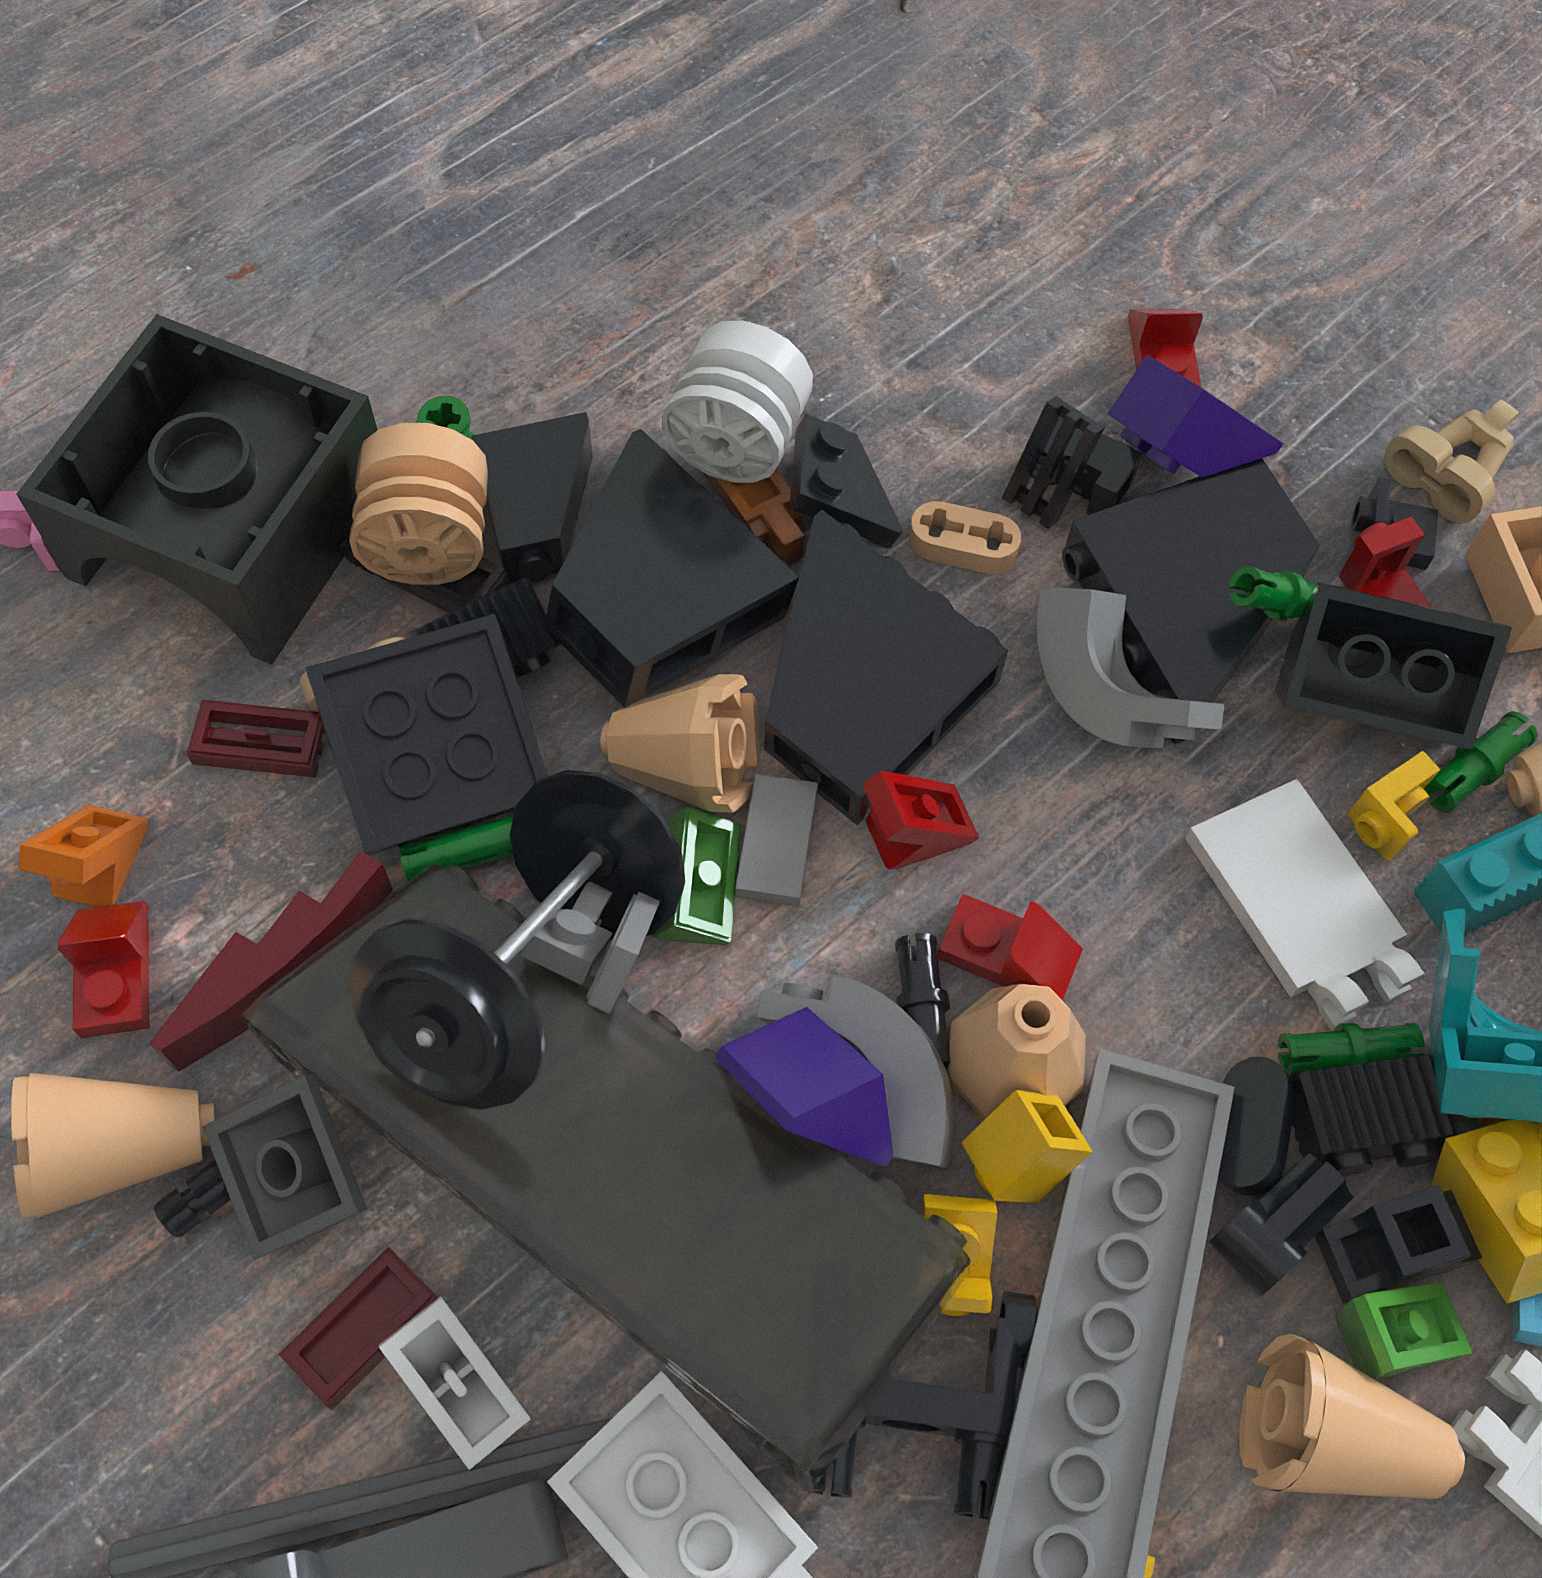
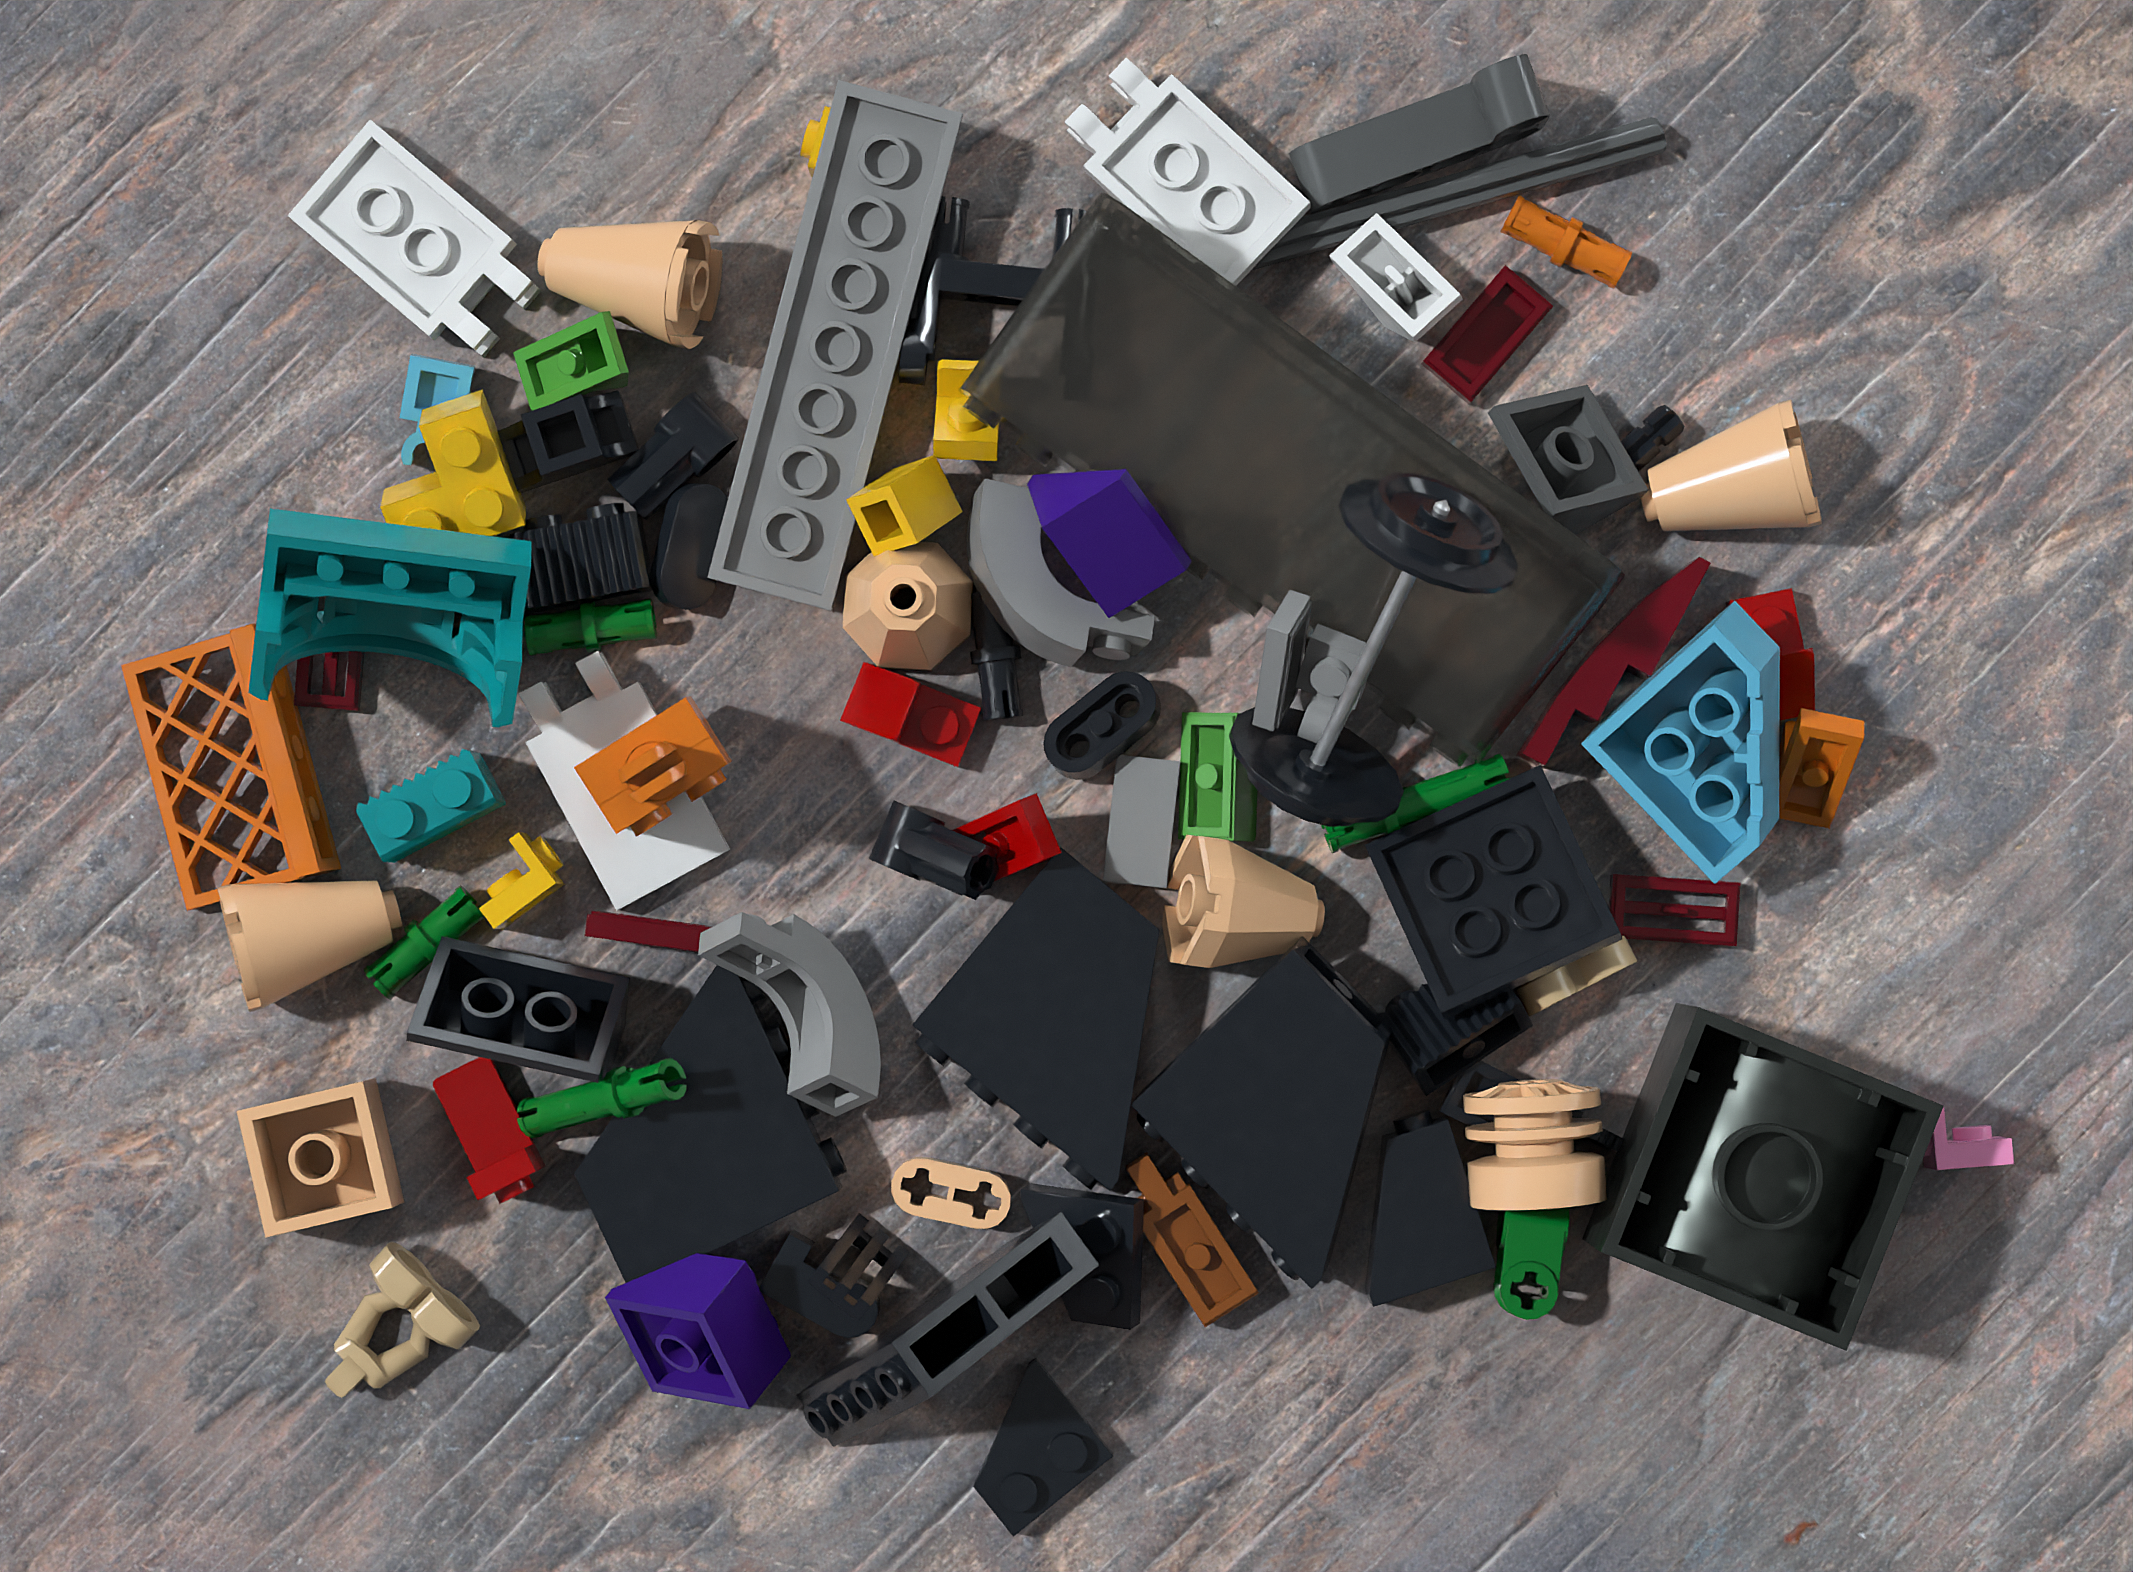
camera: 175 degrees left, 25 degrees up
(194, 863) = (1703, 743): none -> medium azure brick
(251, 1432) = (1566, 242): none -> orange pin
(738, 401) = (1206, 1300): white wheel -> none
(812, 925) = (1099, 721): none -> black plate
(886, 348) = (1038, 1452): none -> black wing
(968, 395) = (947, 1332): none -> black slope
(1001, 815) = (926, 849): none -> black piece
(1167, 337) = (716, 1467): red slope -> none
(1261, 754) = (644, 930): none -> dark red tile
(1284, 875) = (654, 765): none -> orange brick
(1378, 509) = (477, 1228): black bracket -> none

